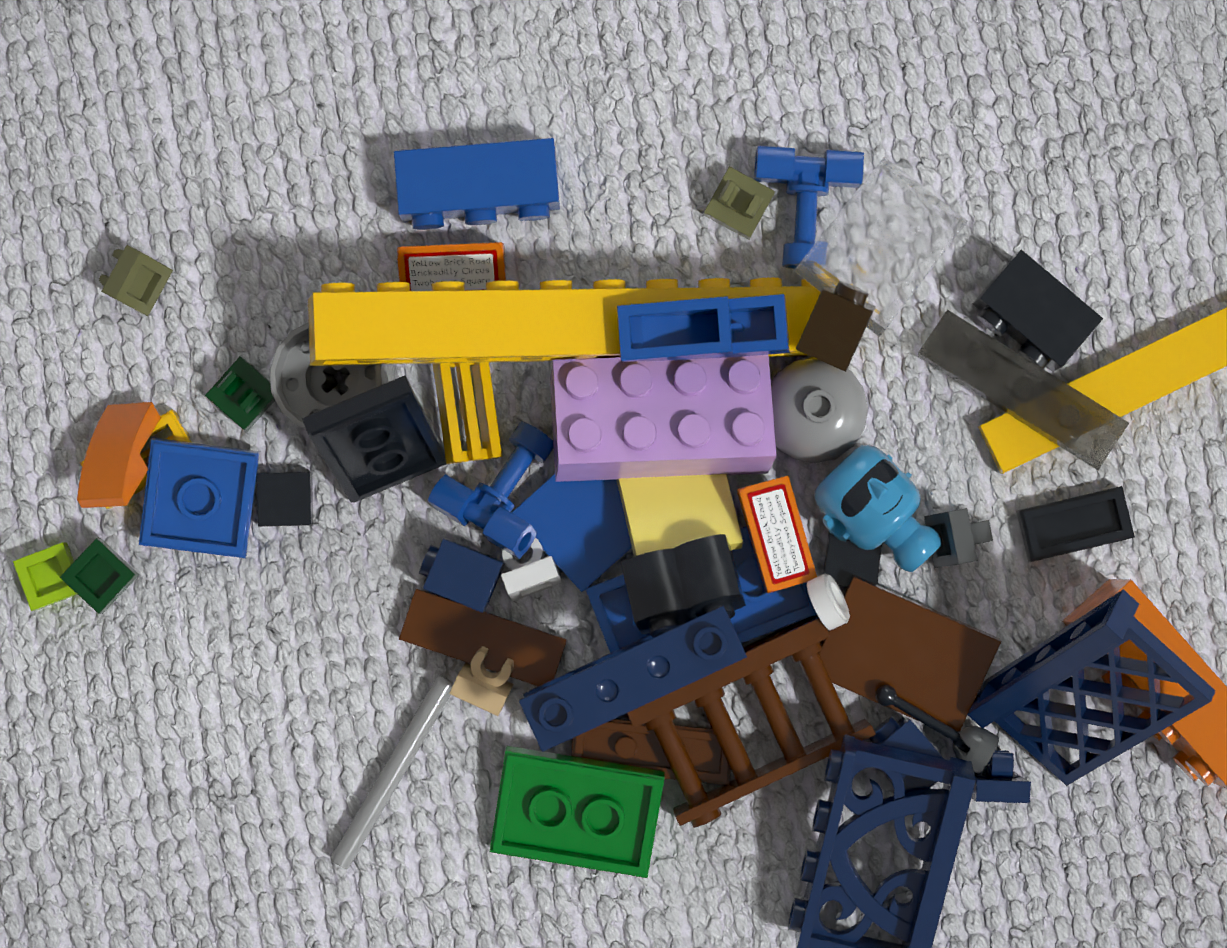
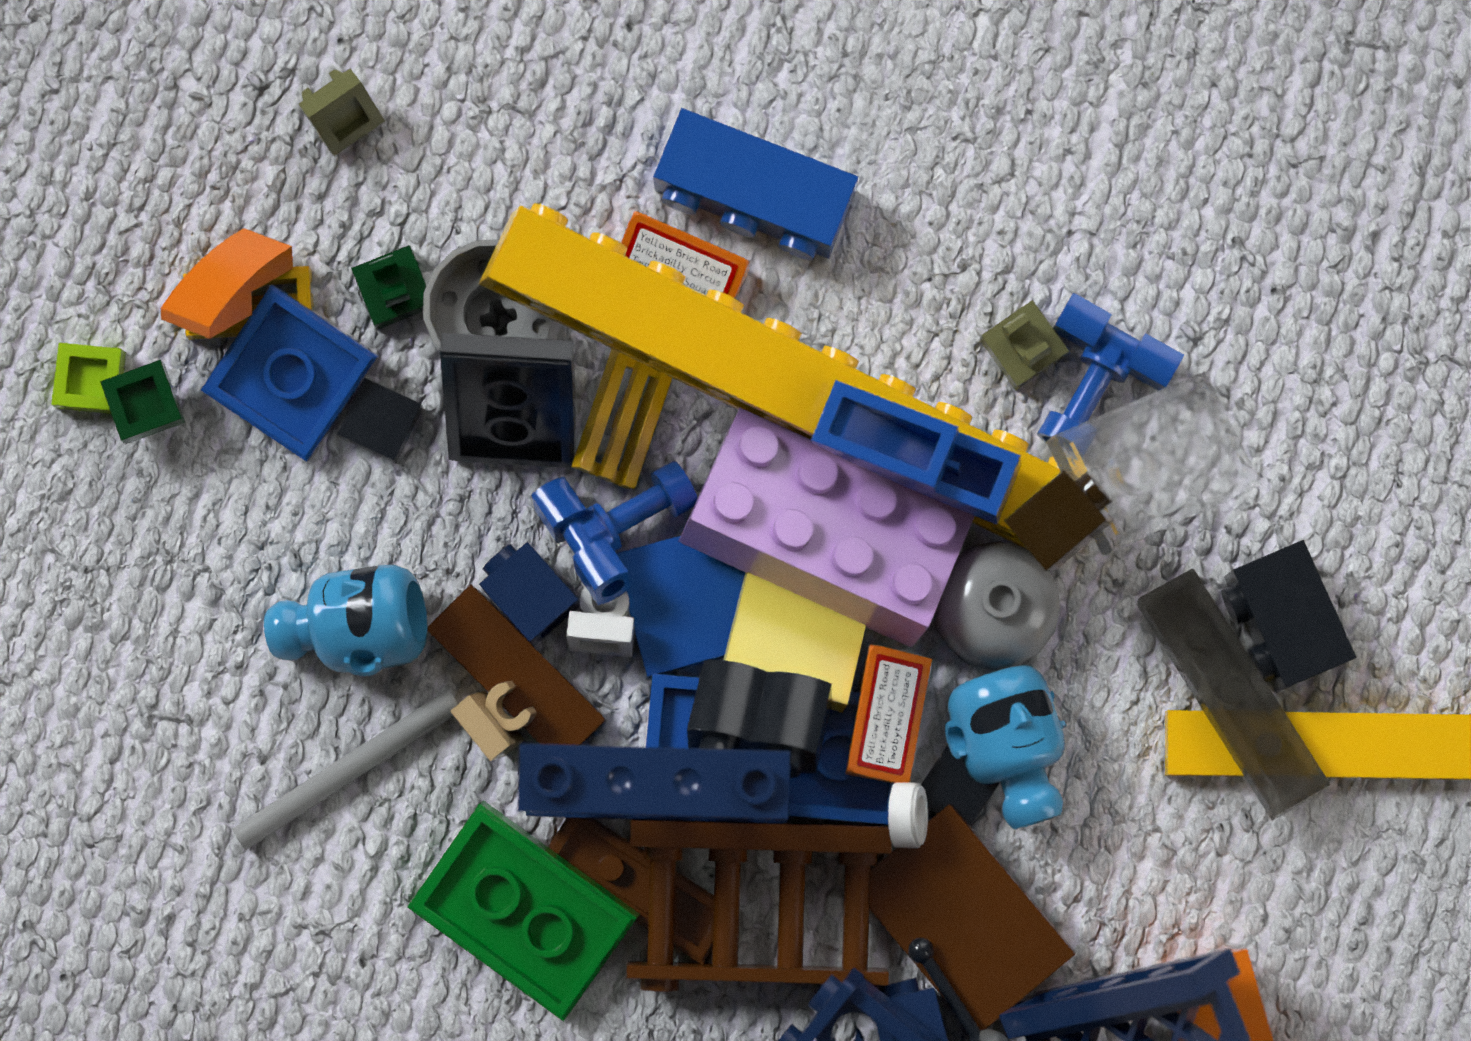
camera: 25 degrees right, 5 degrees down
(342, 661) = (353, 621): none -> dark azure piece
(957, 537) = (1083, 817): dark grey tile -> none
(1075, 524) = (1220, 869): black tile -> none

